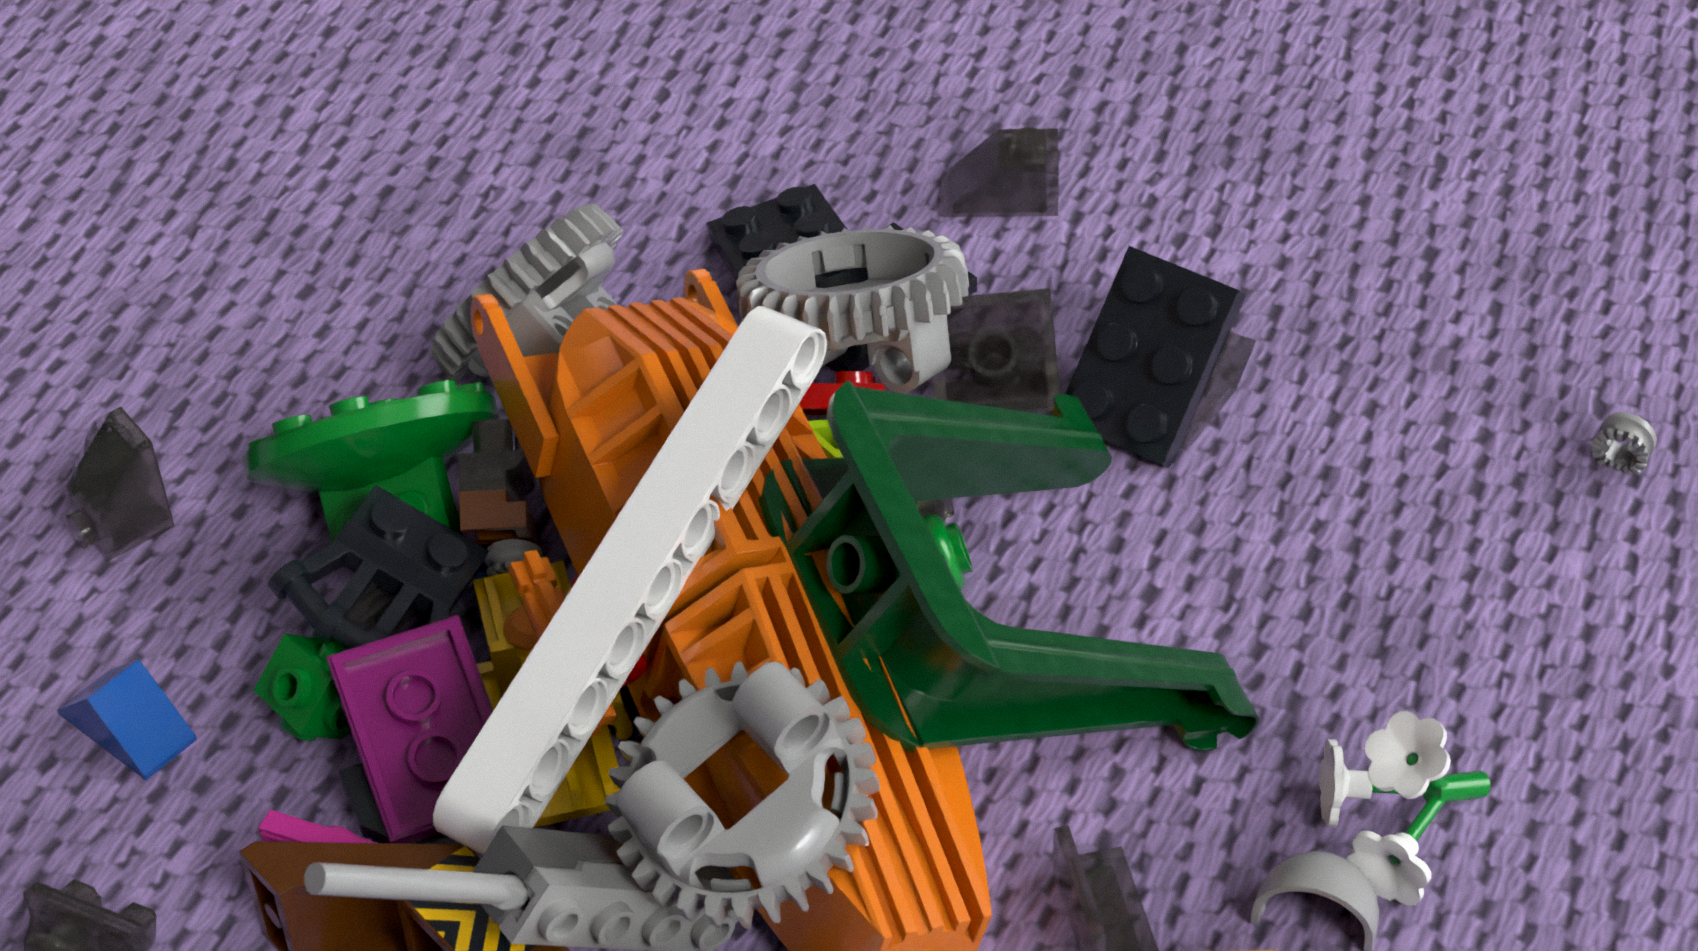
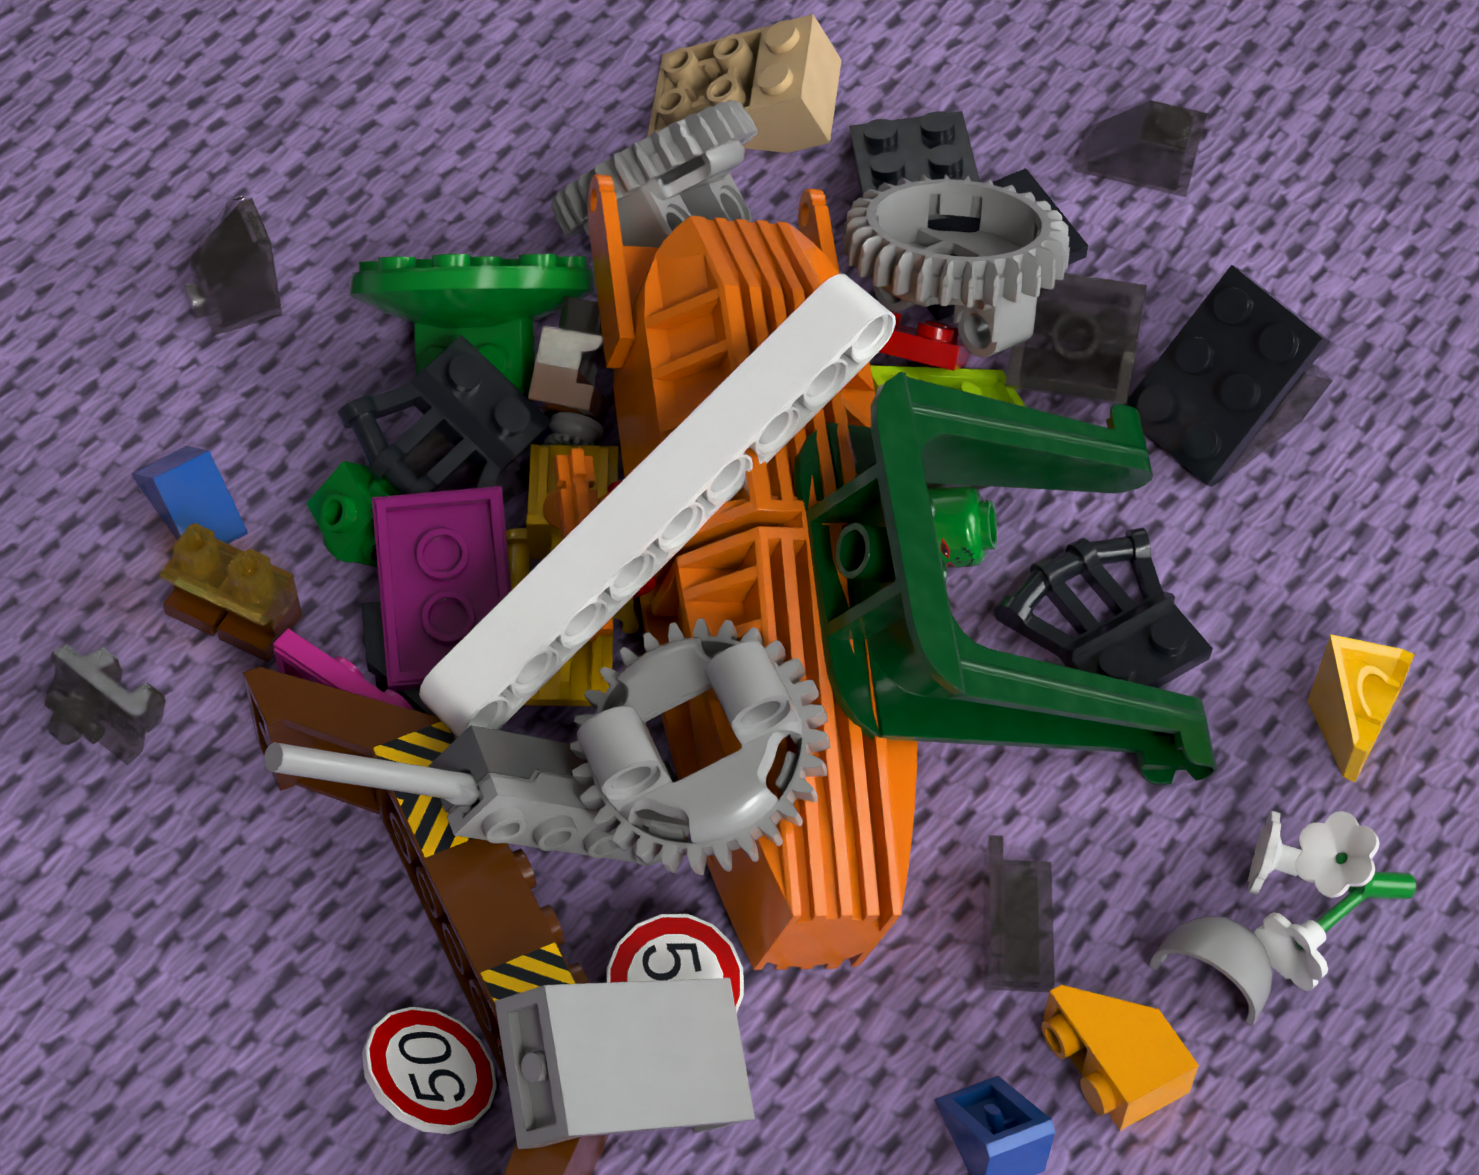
camera: 10 degrees right, 10 degrees up
(196, 791) = (230, 592): none -> clear yellow hips
(627, 178) = (778, 73): none -> tan slope
(1146, 613) = (1139, 644): none -> black plate
(1372, 618) = (1355, 695): none -> yellow slope

